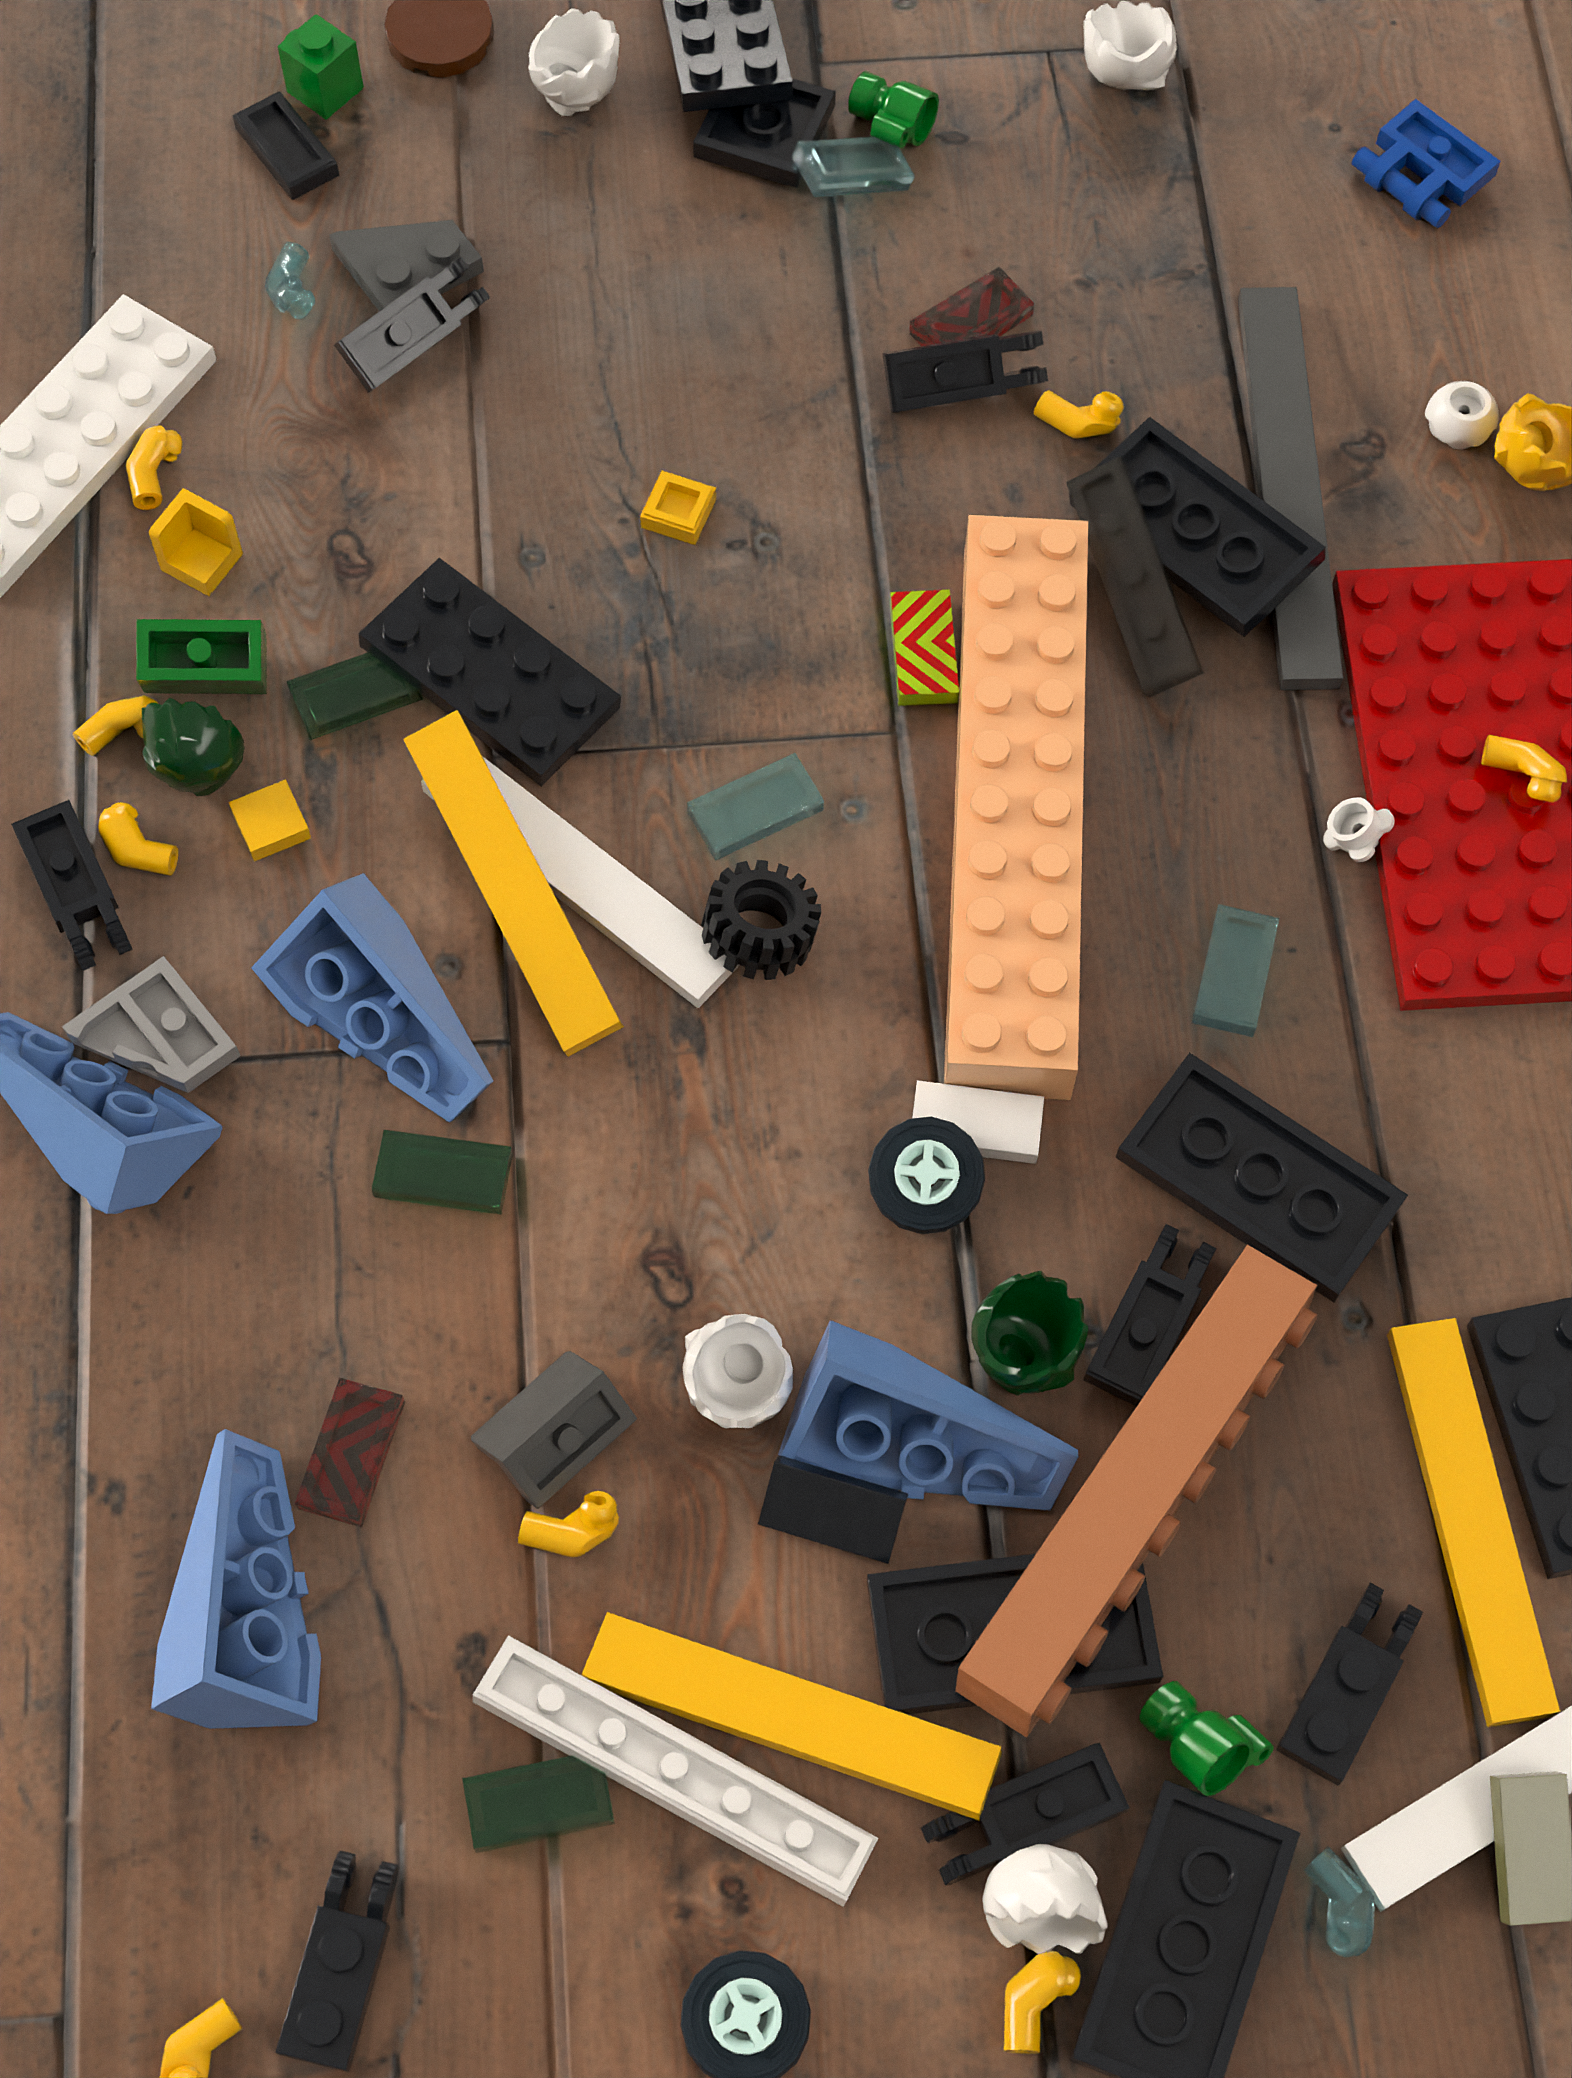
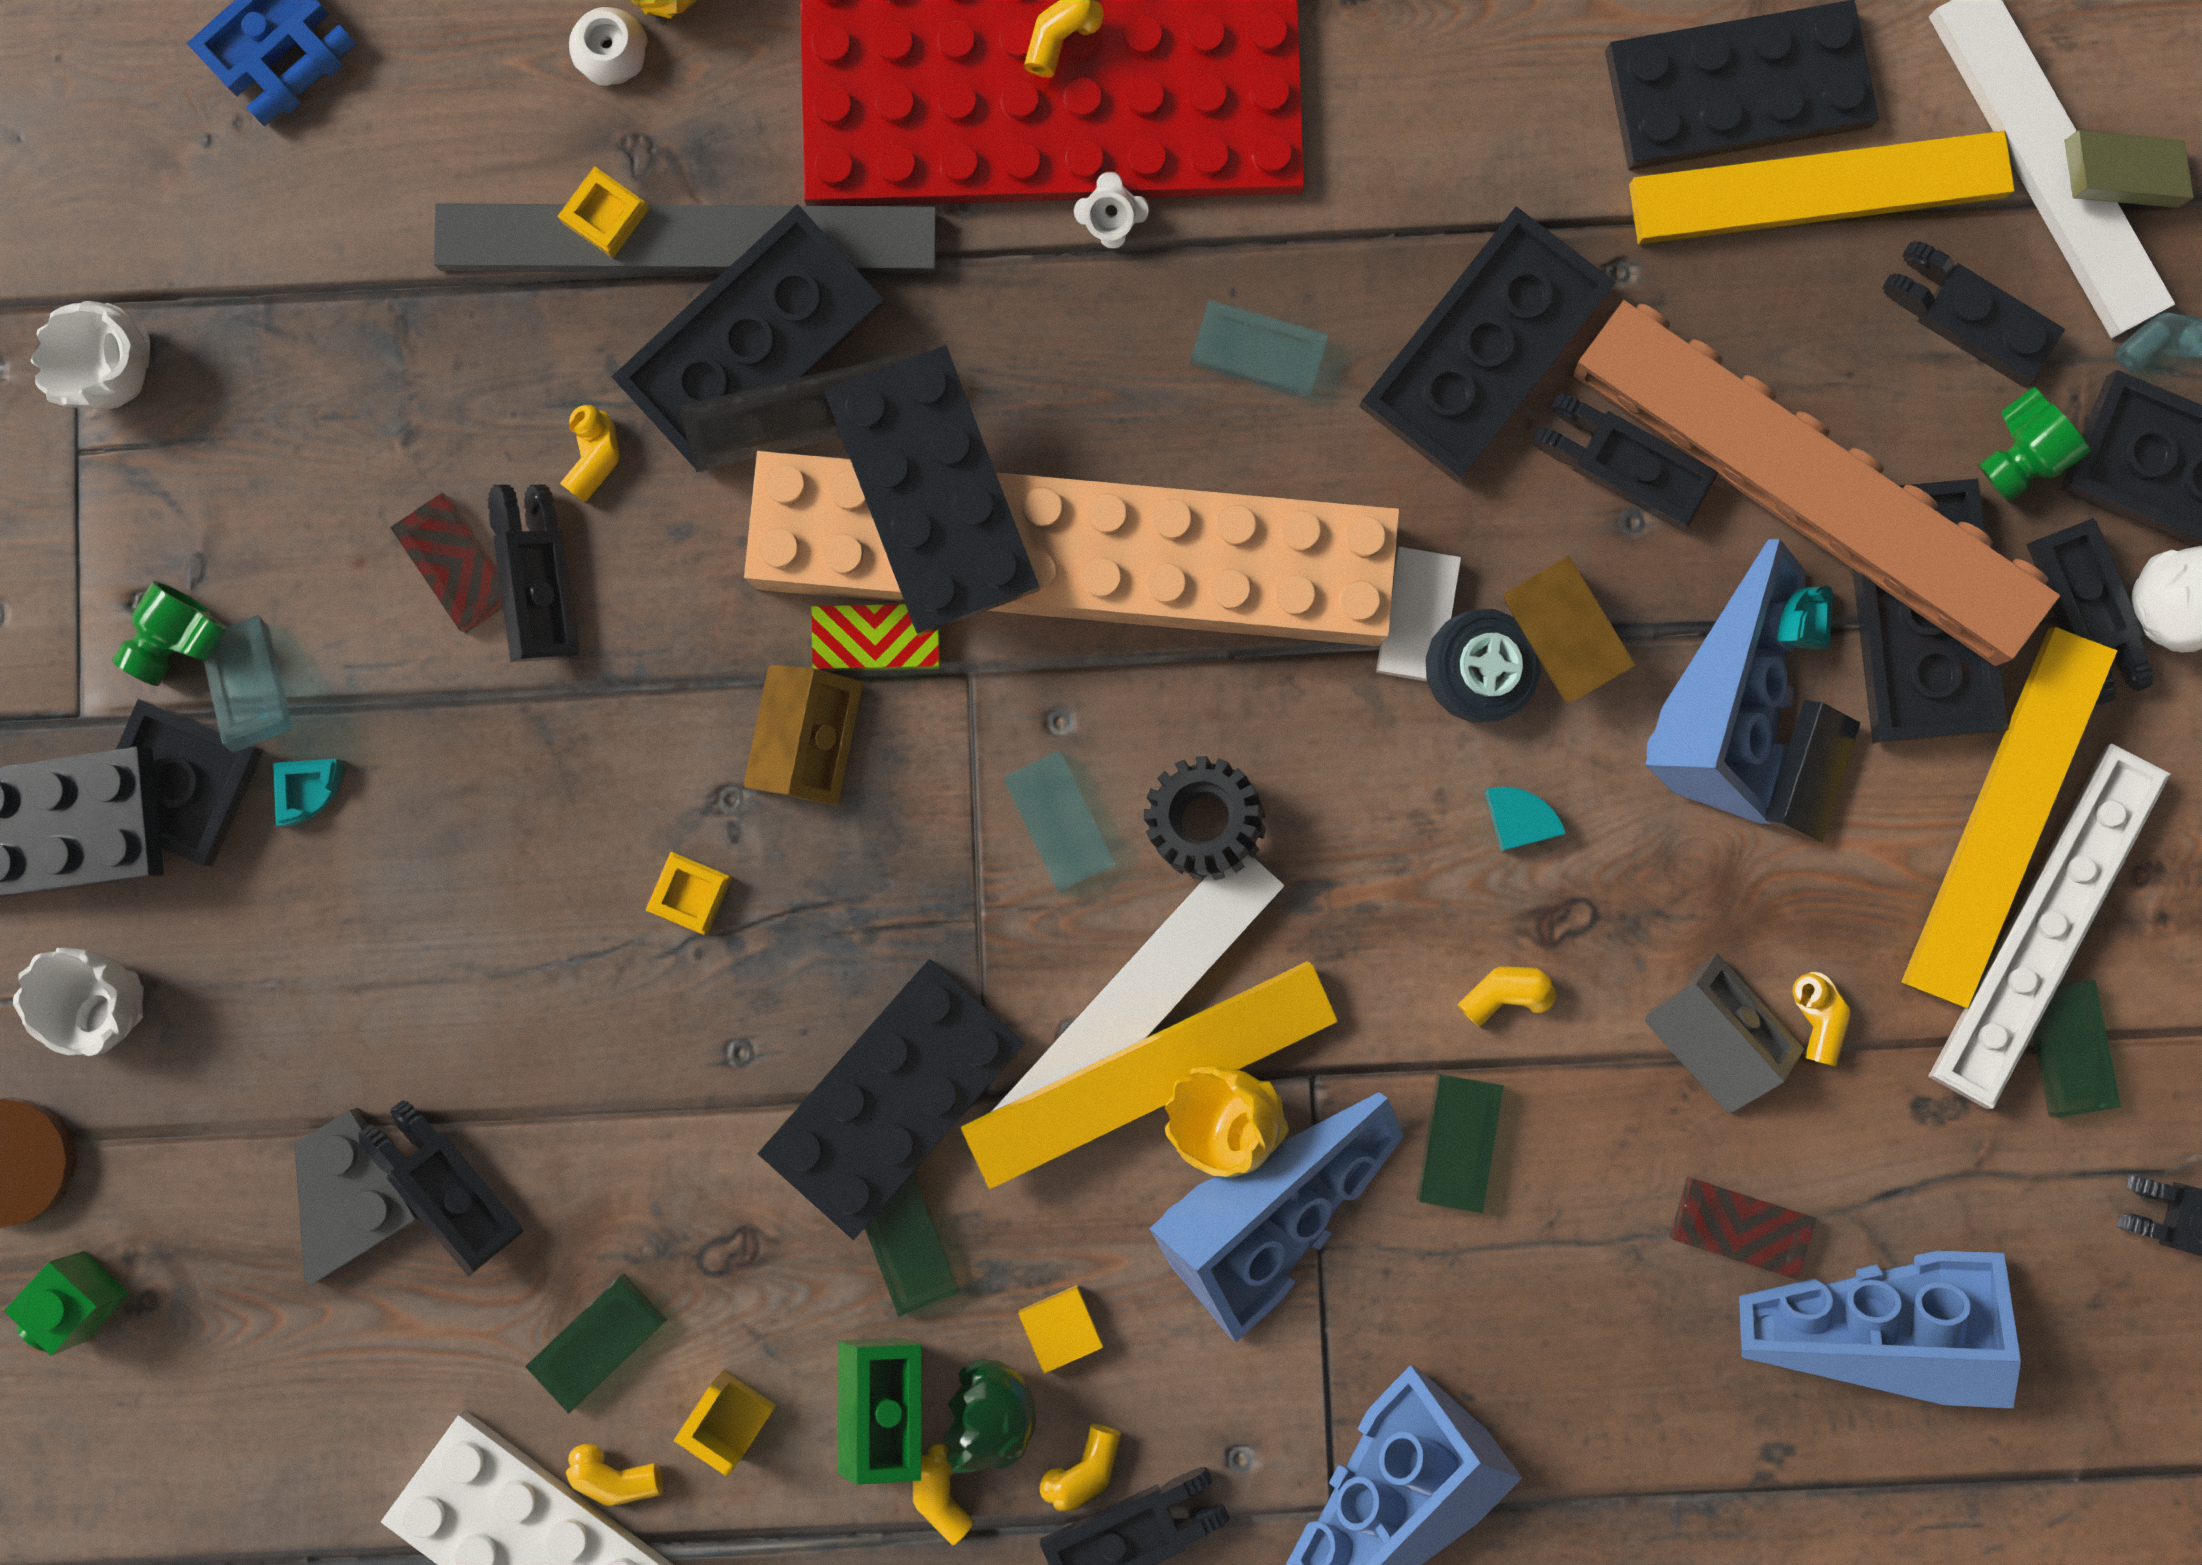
camera: 85 degrees left, 20 degrees up
(156, 1029) = (1302, 1436): light grey wing -> none
(271, 451) = (596, 1343): none -> clear green tile
(284, 284) = (373, 1336): clear light blue arm -> none
(286, 145) = (169, 1340): black tile -> none
(465, 934) = (1225, 1121): none -> yellow hair
(599, 1213) = (1508, 986): none -> yellow arm
(737, 1371) = (1693, 856): white hair -> none
(762, 218) = (304, 789): none -> teal tile
(772, 1223) = (1520, 817): none -> teal tile
(827, 591) = (803, 733): none -> pearl gold panel
(968, 1253) = (1568, 630): none -> pearl gold panel
(996, 1501) = (1807, 619): none -> teal tile
(1029, 1333) = (1659, 576): dark green hair -> none
(1059, 652) = (932, 490): none -> black plate
(1302, 409) = (603, 212): none -> yellow tile

